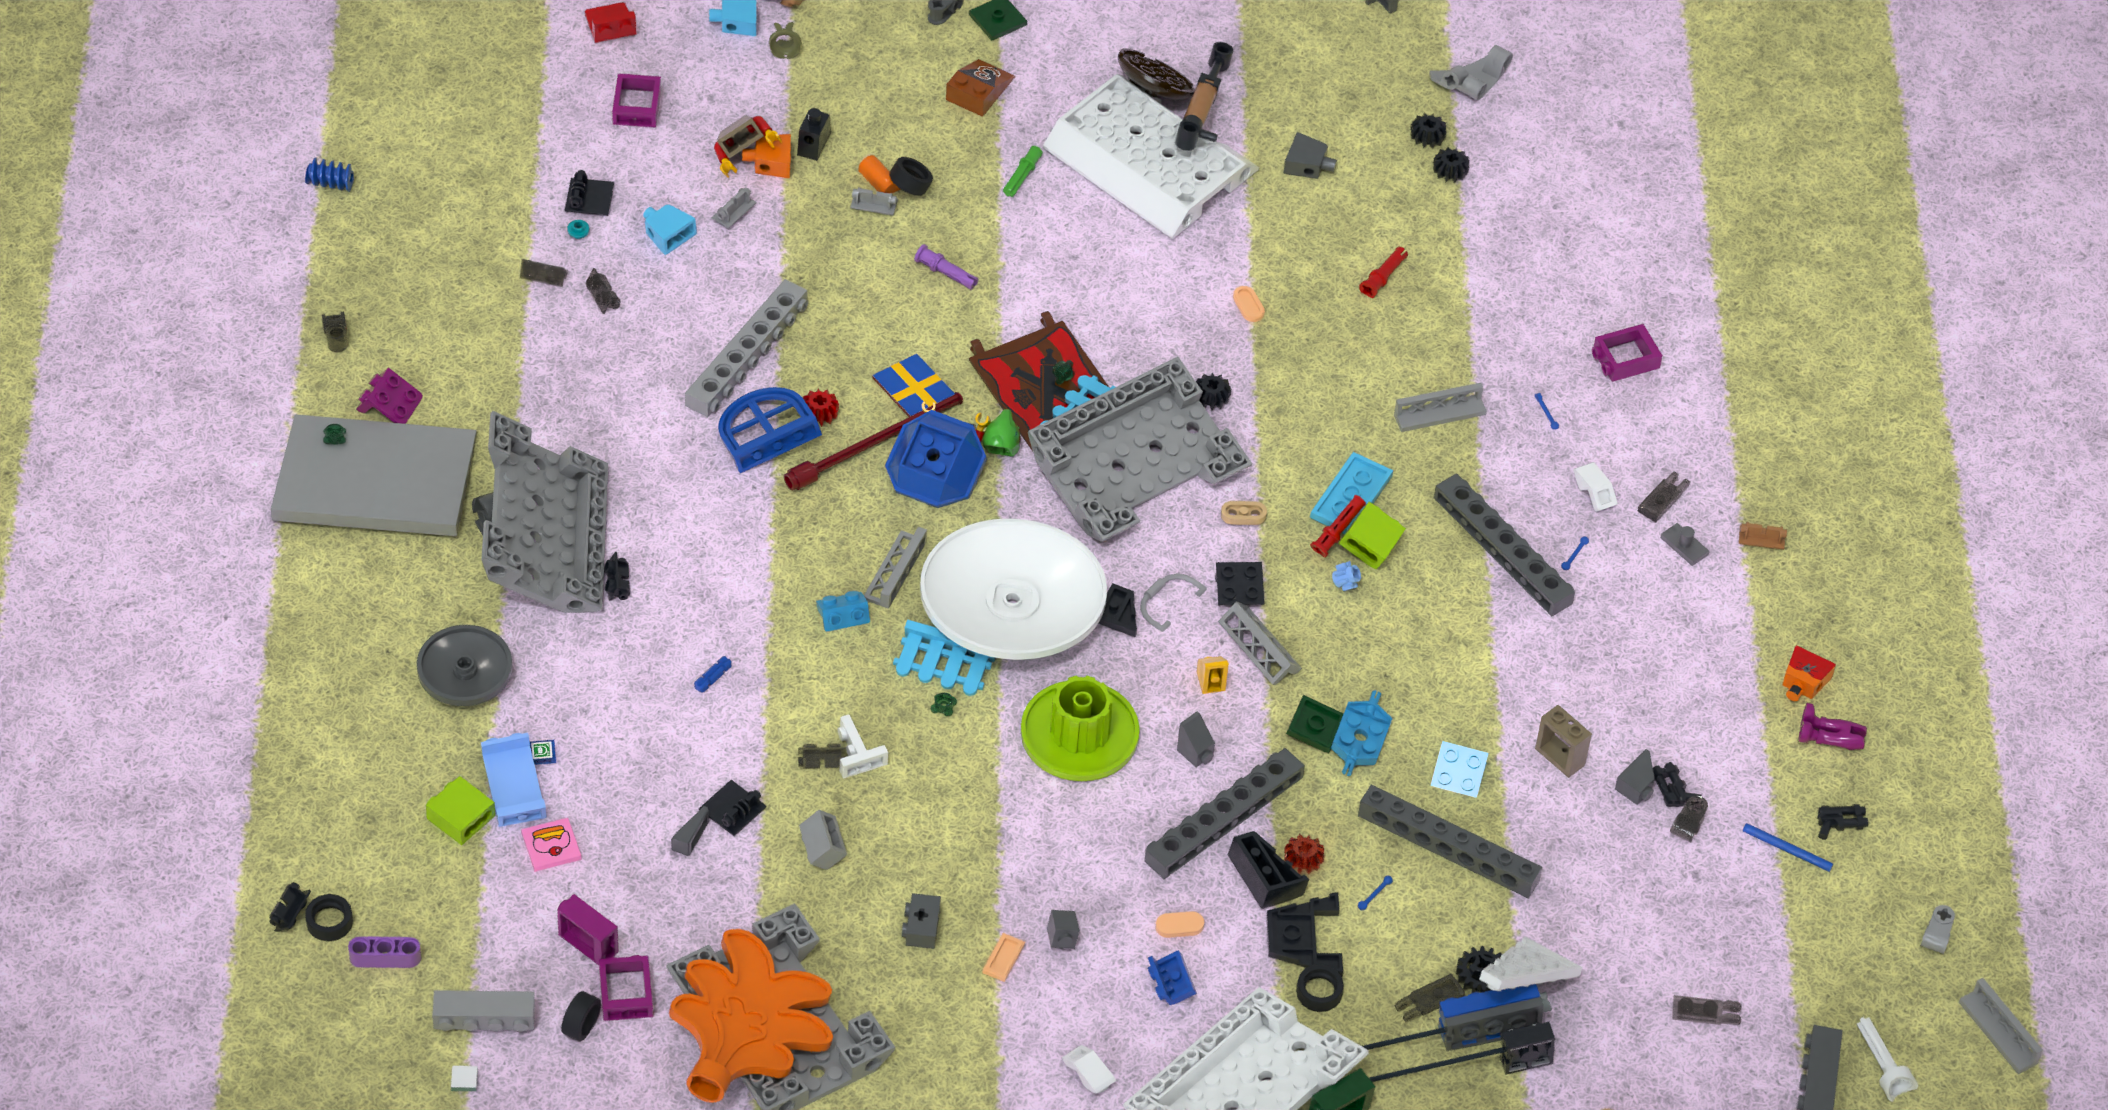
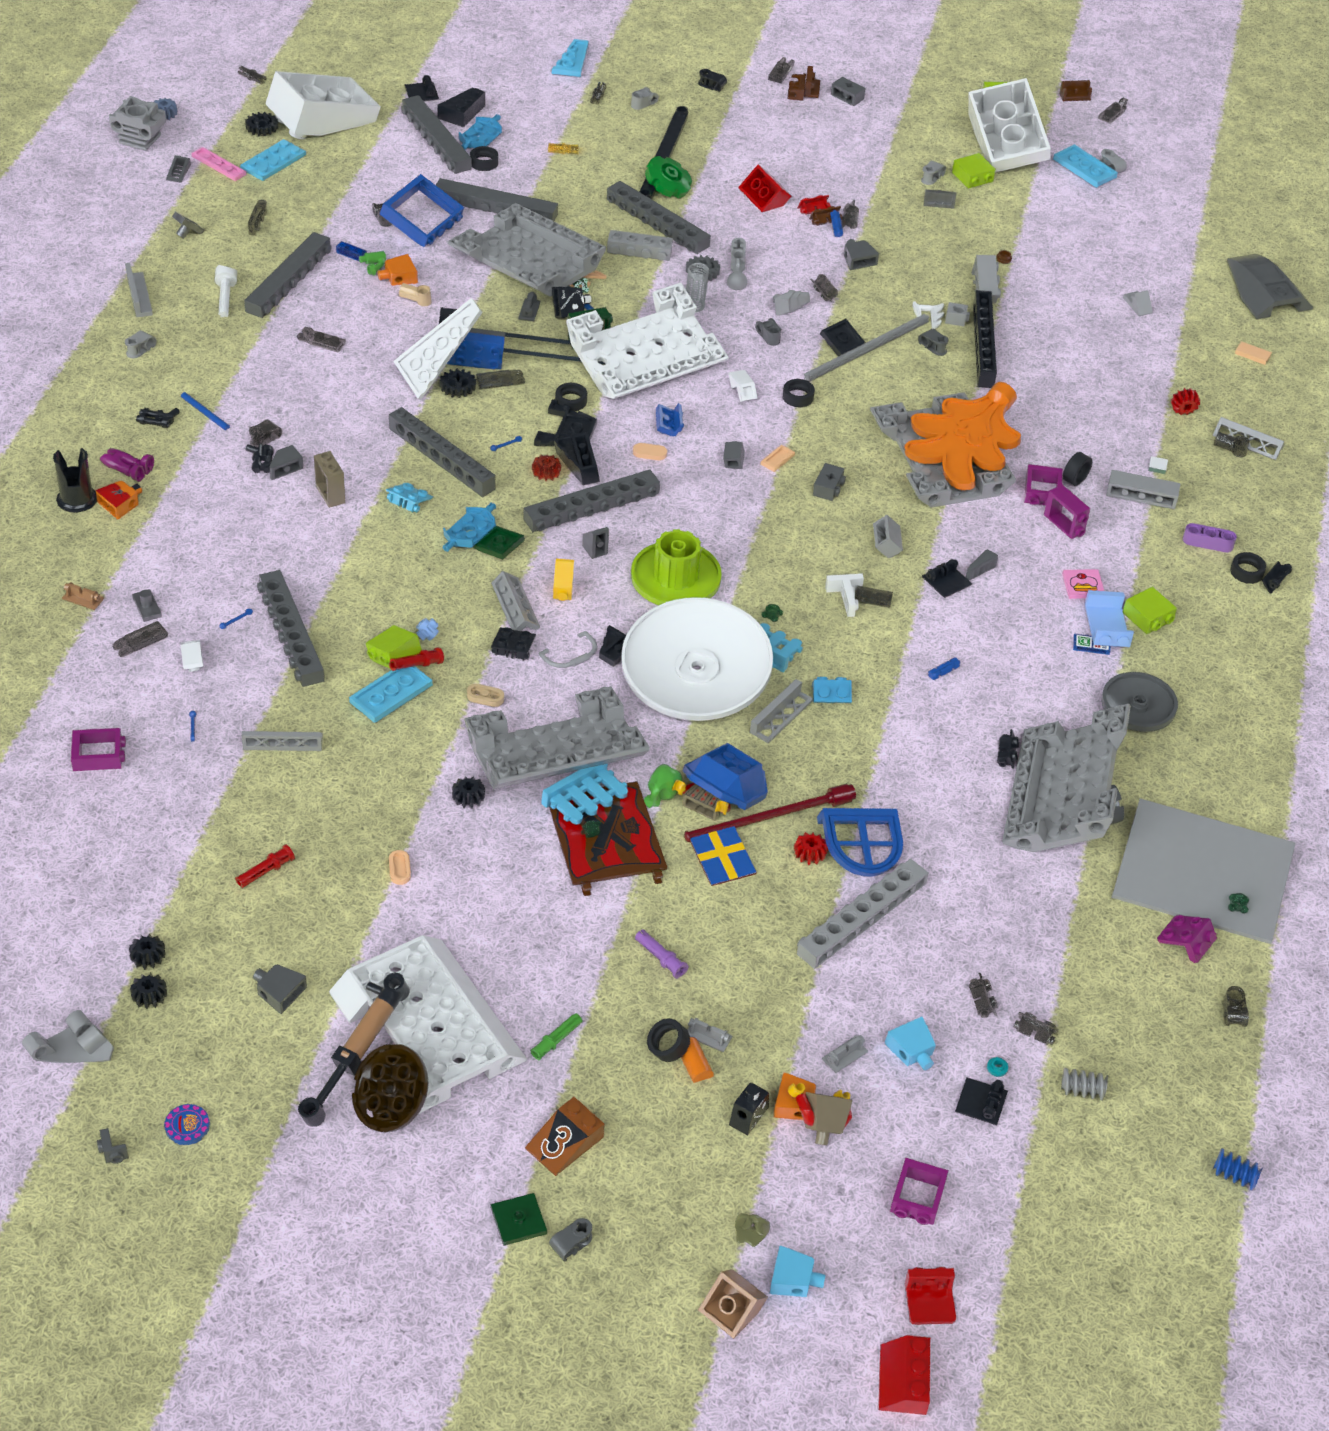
camera: 165 degrees left, 5 degrees down
(488, 222) = (1084, 1084): none -> light grey piece
(1006, 1094) = (795, 400): none -> black tyre
(1328, 34) = (187, 1124): none -> blue tile
(1854, 670) = (74, 484): none -> black piece

